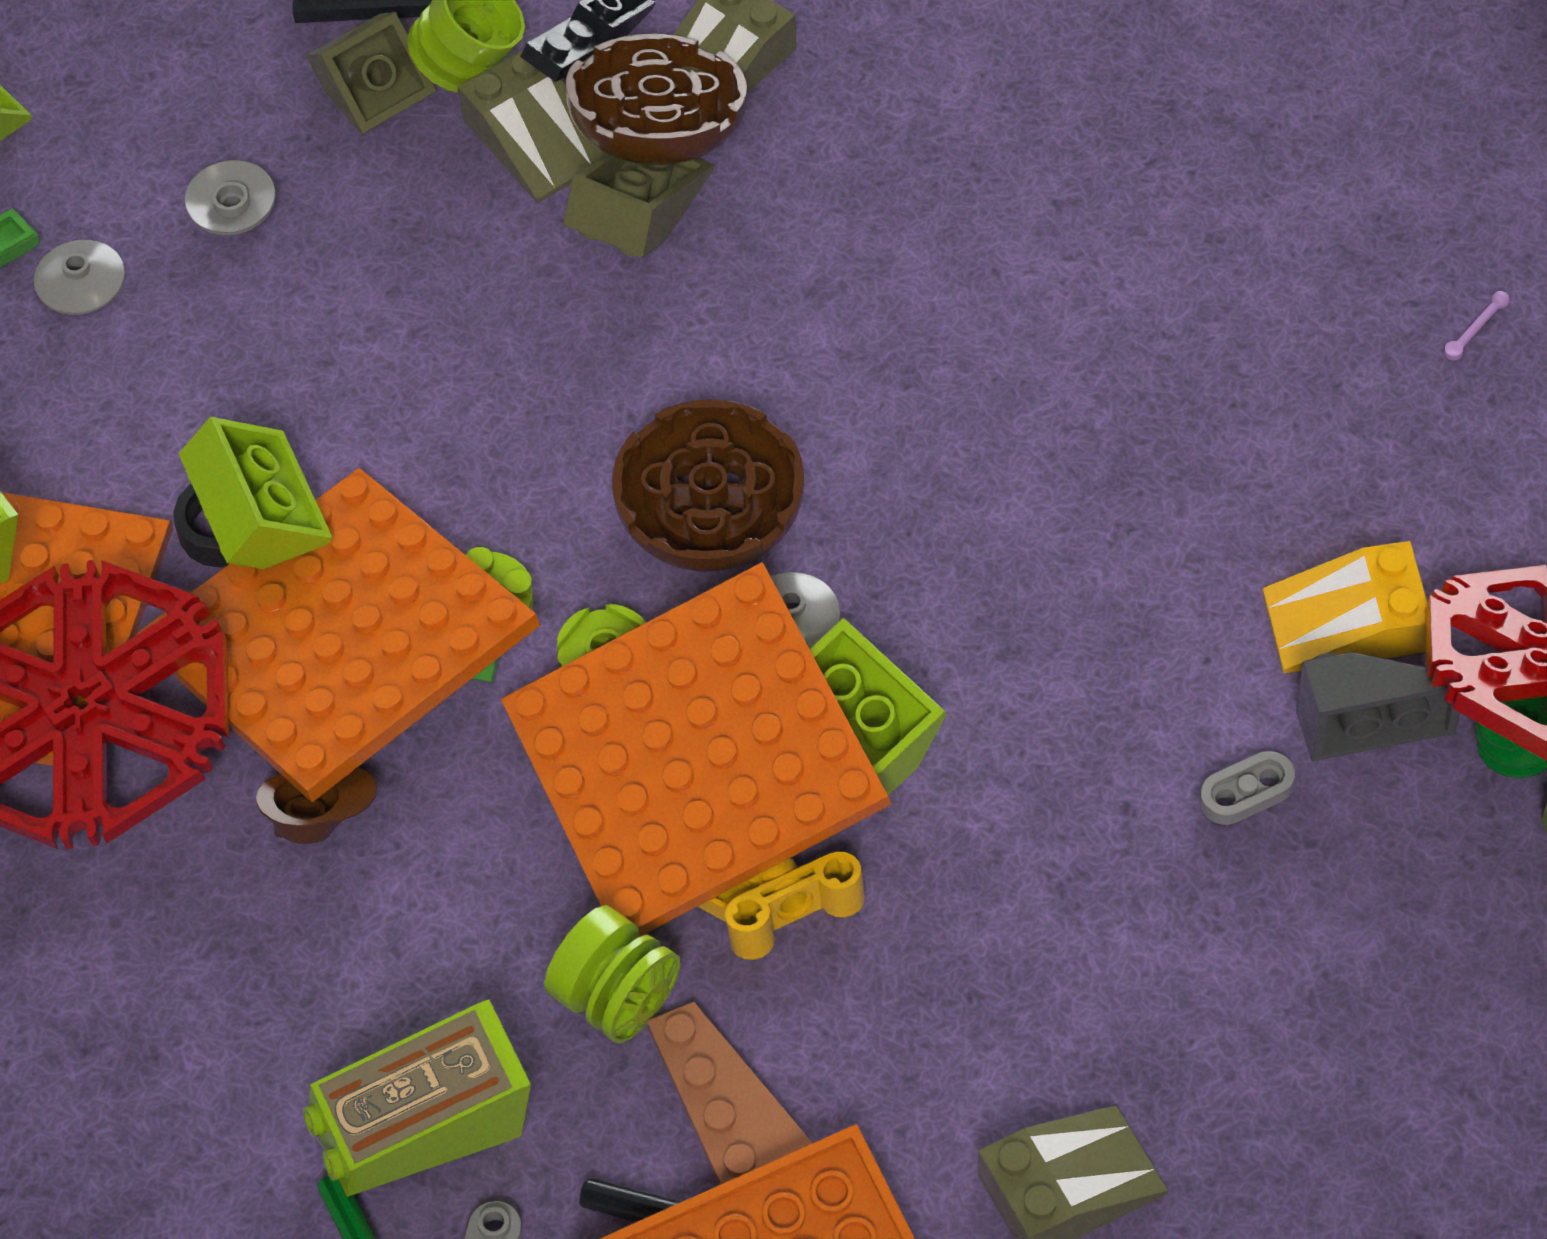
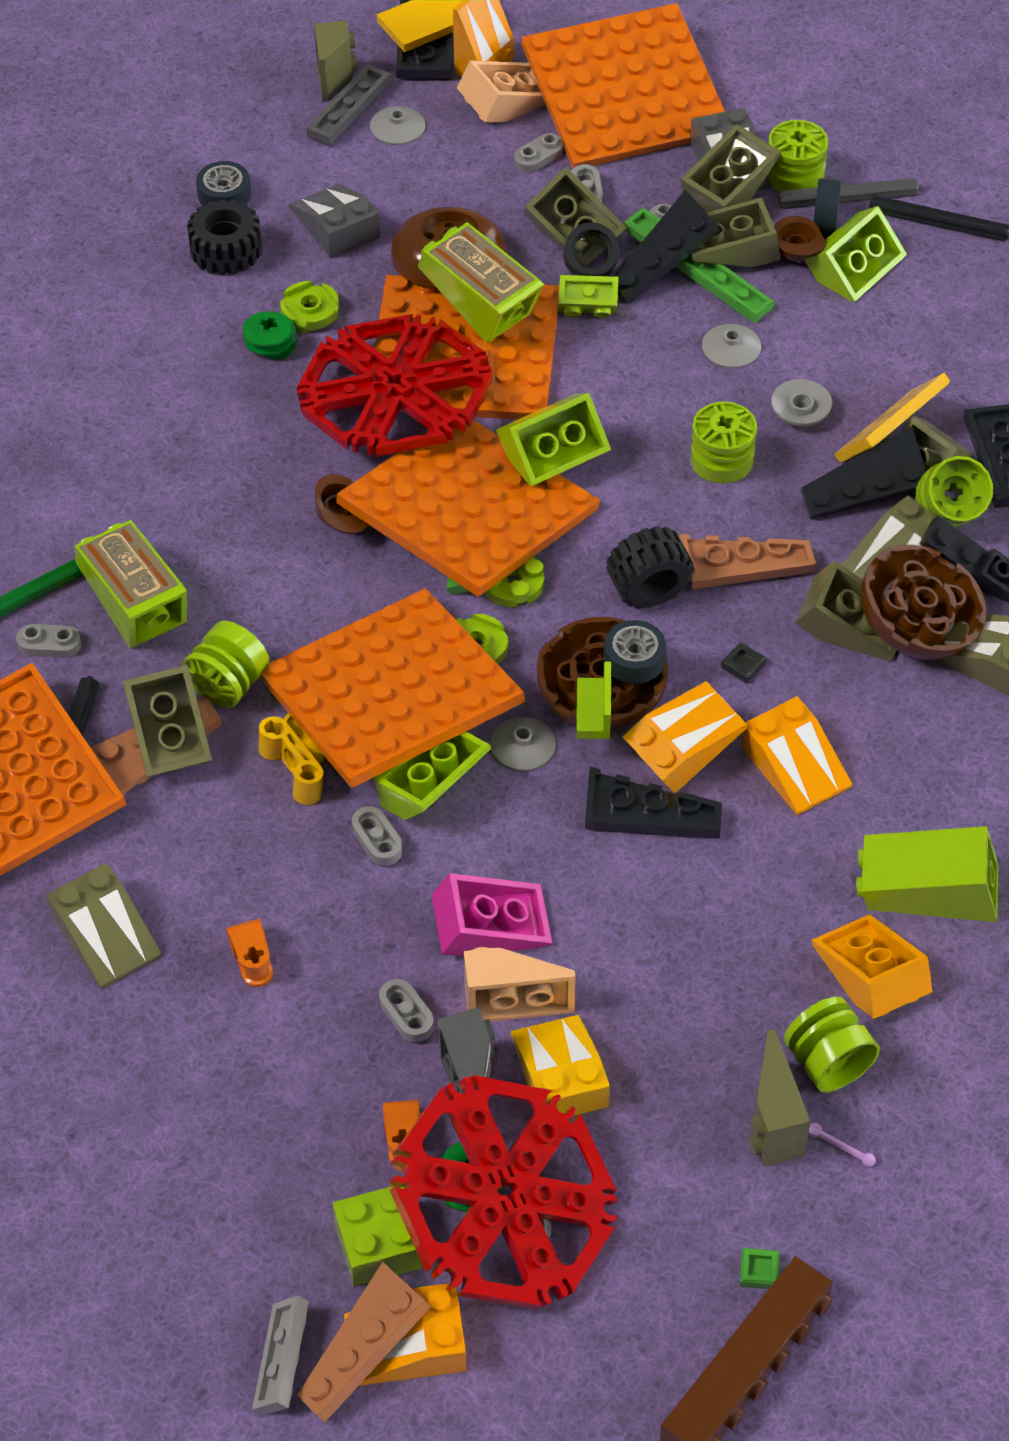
camera: 80 degrees right, 5 degrees down
(297, 293) = (723, 442): none -> lime wheel
(299, 89) = (892, 418): none -> yellow tile
(401, 133) = (872, 476): none -> black wing
(509, 311) = (745, 560): none -> nougat wing
(531, 401) = (650, 567): none -> black tyre
(677, 424) = (639, 638): none -> black wheel
(691, 332) = (743, 662): none -> pearl dark grey tile
(712, 1058) = (167, 721): none -> olive slope
(786, 480) = (594, 706): none -> lime panel
(835, 397) = (685, 734): none -> light orange slope
(869, 289) = (795, 755): none -> light orange slope
(934, 472) = (633, 807): none -> black wing
(940, 803) = (379, 837): none -> light grey plate
(1092, 161) = (931, 873): none -> lime slope
(1103, 674) = (489, 914): none -> dark pink slope
(1127, 976) = (251, 951): none -> orange piece
(1218, 247) = (875, 965): none -> light orange slope
(1235, 661) = (516, 985): none -> light nougat slope
(1355, 296) = (831, 1044): none -> lime wheel
(1437, 367) = (780, 1115): none -> olive slope
(1441, 802) = (398, 1120): none -> orange piece

